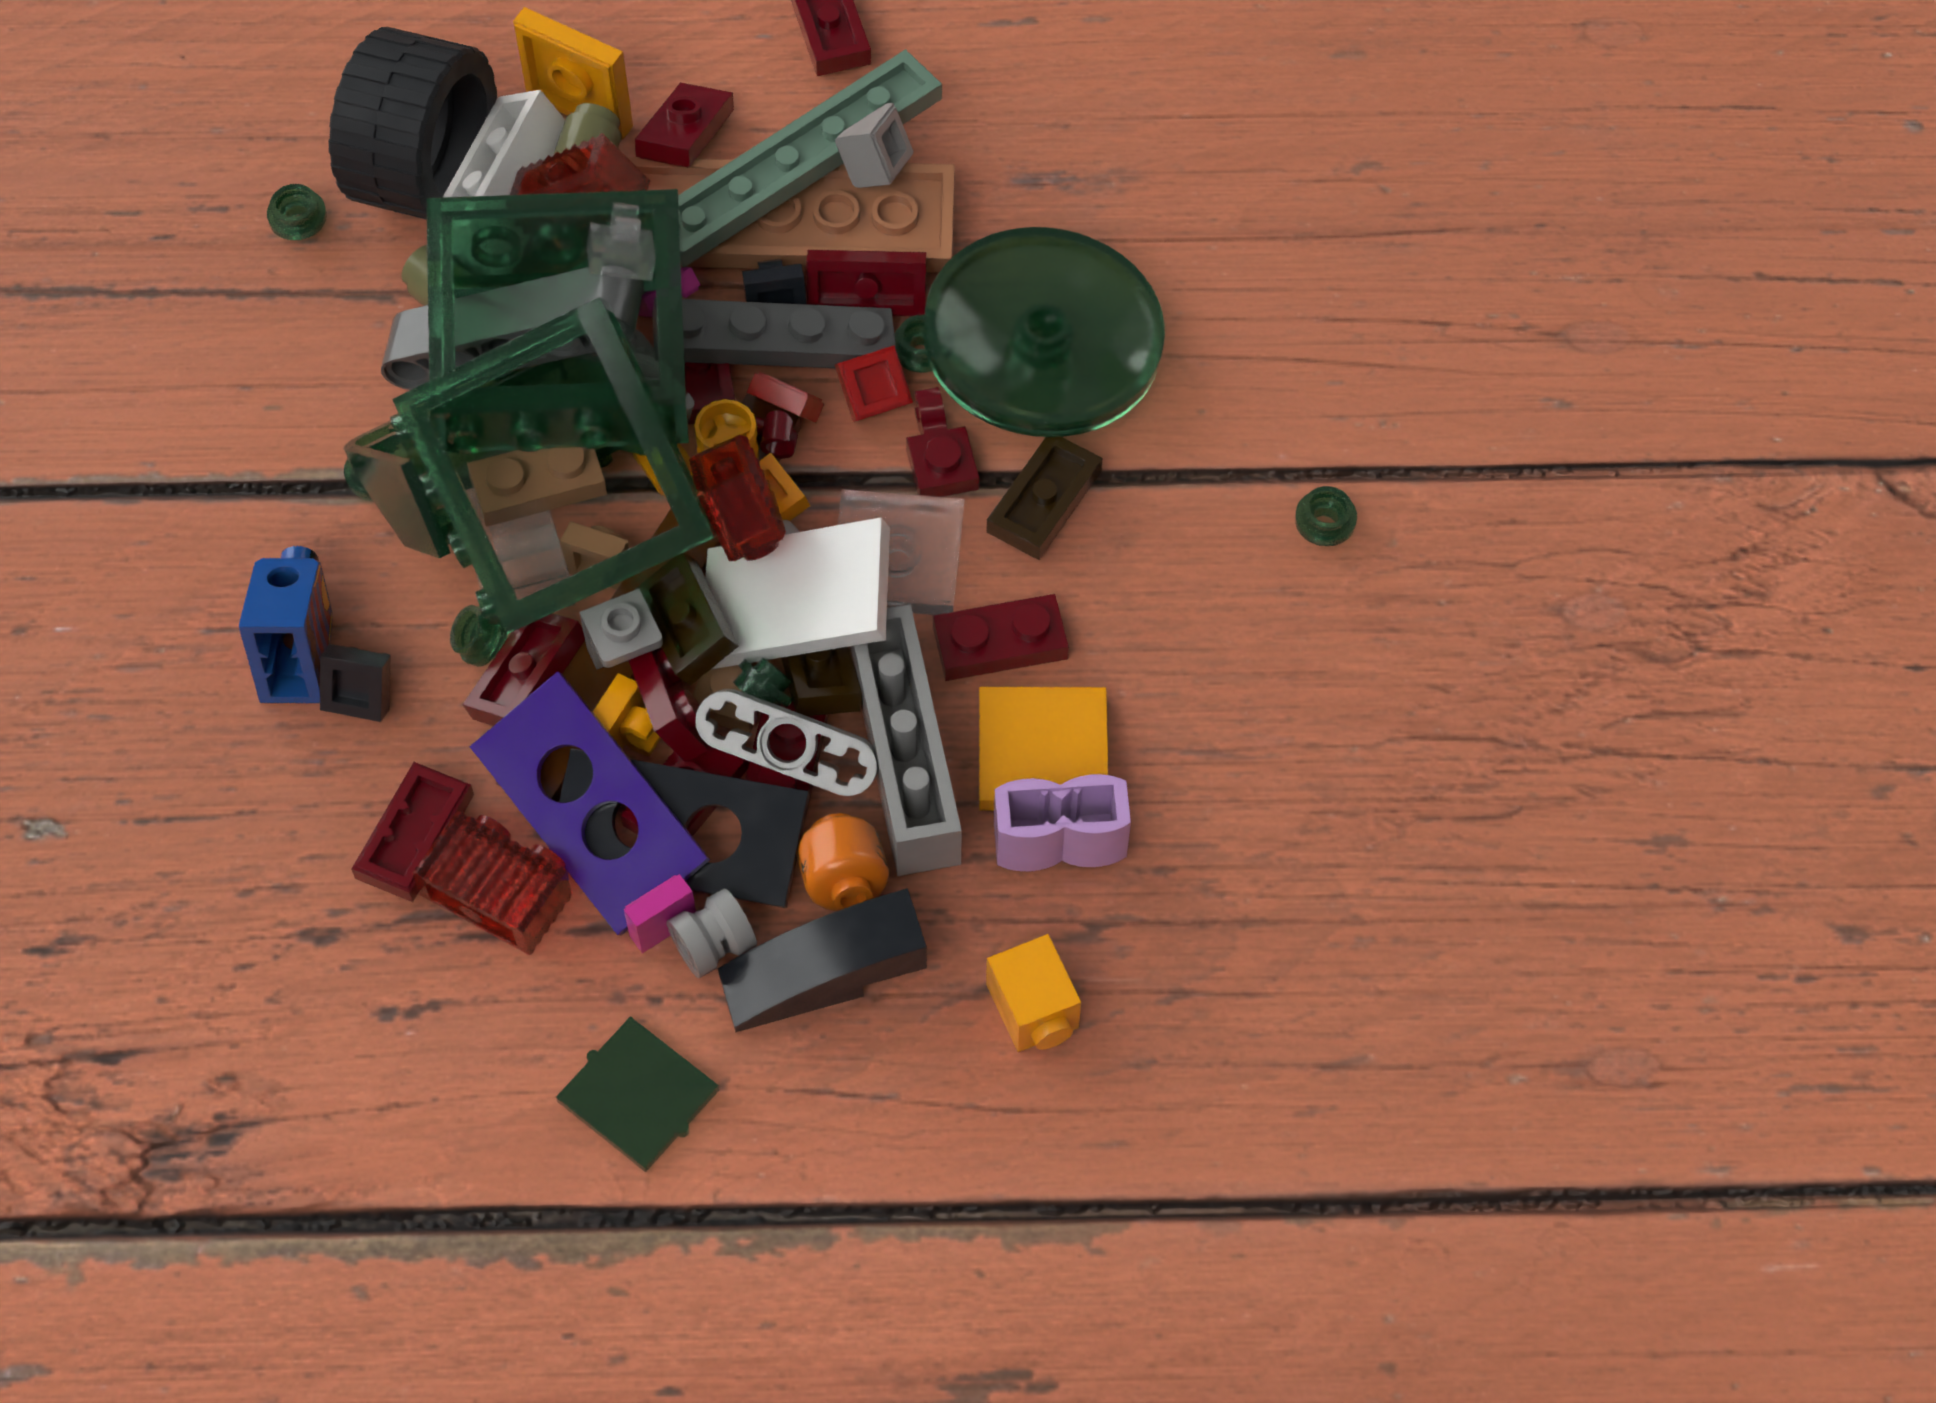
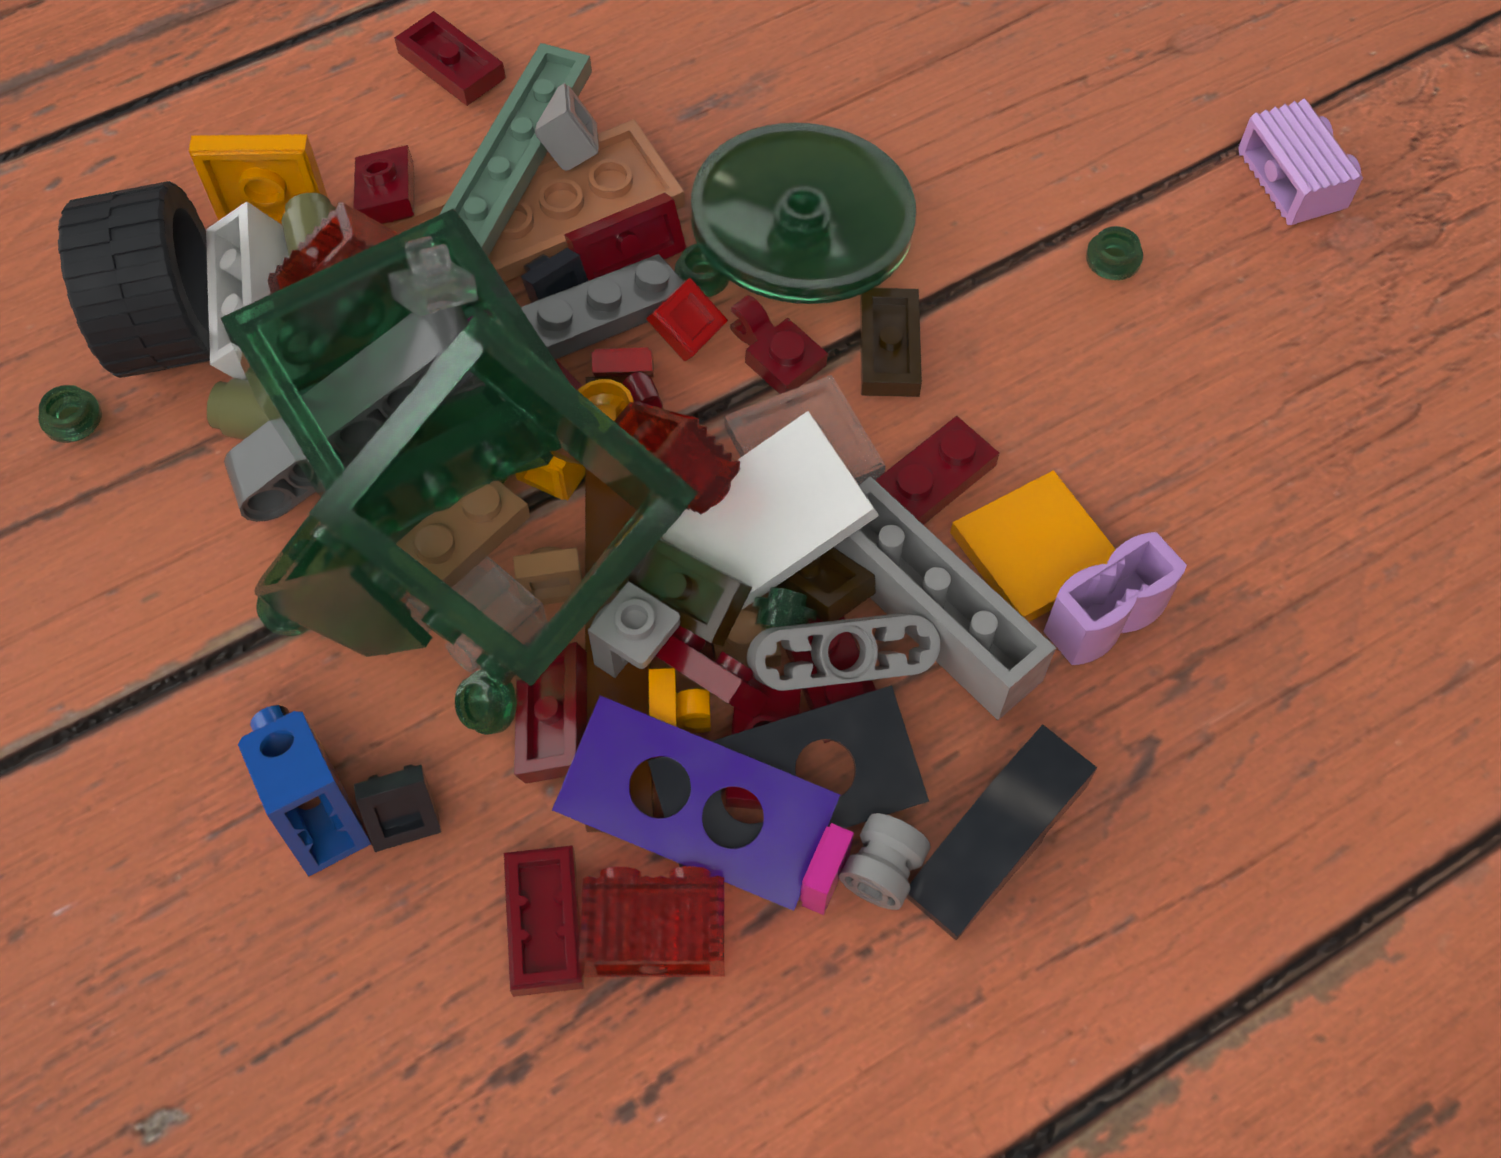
camera: 30 degrees left, 0 degrees up
(637, 1094) = (913, 1052): clear green piece -> none
(840, 860) = (954, 733): orange head -> none
(1033, 994) = (1195, 760): light orange brick -> none
(1583, 514) = (1299, 162): none -> lavender brick

